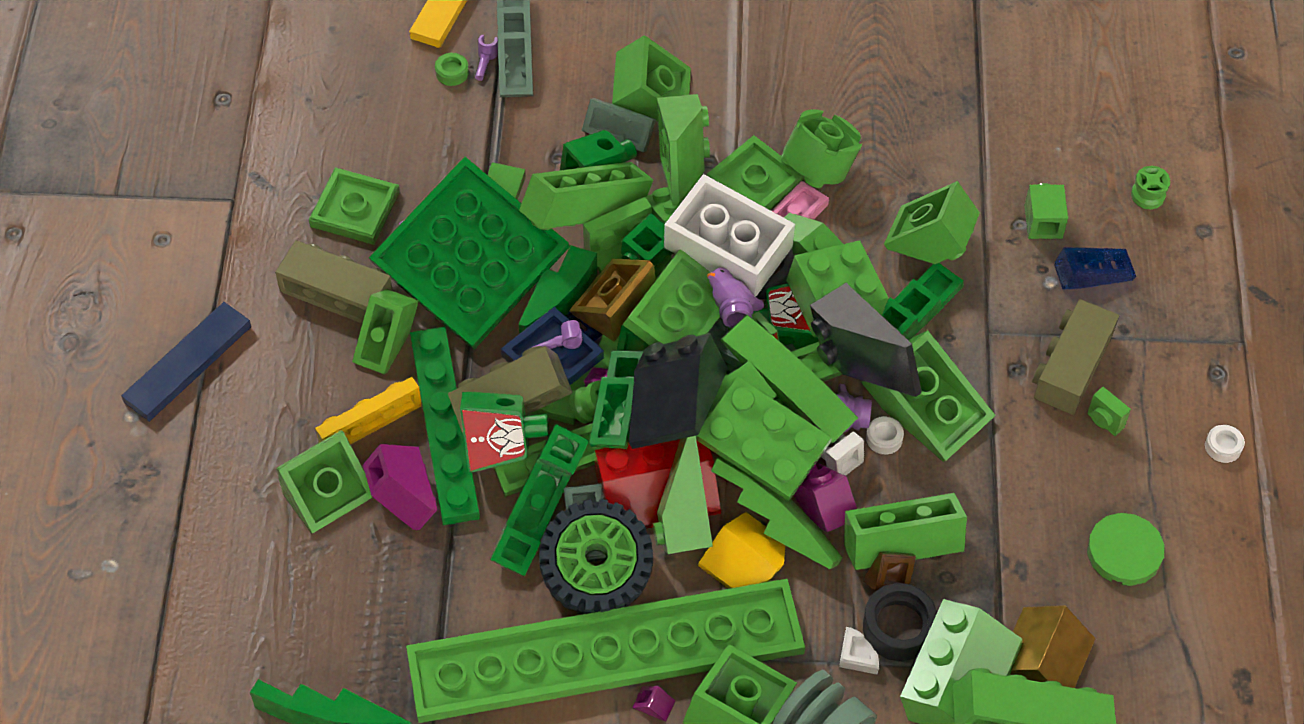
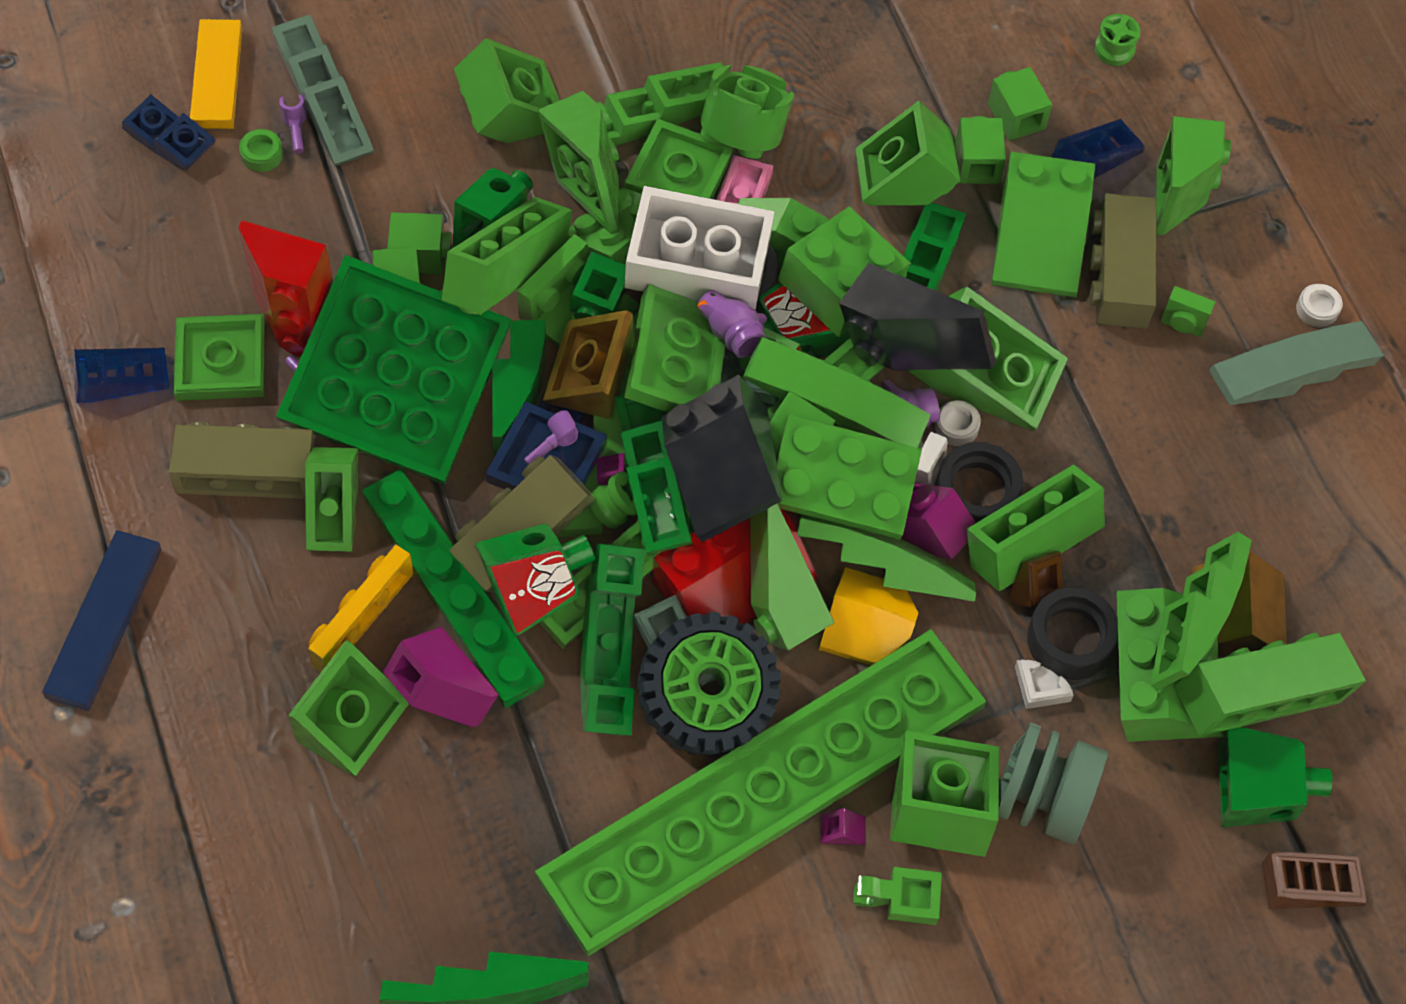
camera: 25 degrees left, 5 degrees up
(269, 181) = (104, 388): none -> clear blue slope
(389, 36) = (166, 134): none -> dark blue slope
(419, 160) = (288, 281): none -> red slope
(533, 160) = (425, 233): none -> bright green brick
(619, 122) = (478, 152): sand green plate -> none
(768, 122) = (666, 96): none -> bright green slope
(881, 462) = (989, 458): none -> black tyre
(997, 236) = (980, 150): none -> bright green brick
(1000, 633) = (1197, 618): none -> bright green slope
(1021, 307) = (1043, 224): none -> bright green slope
(1125, 549) = (1271, 461): bright green tile -> none
(1157, 303) = (1188, 169): none -> bright green slope
(1184, 478) = (1295, 361): none -> sand green slope

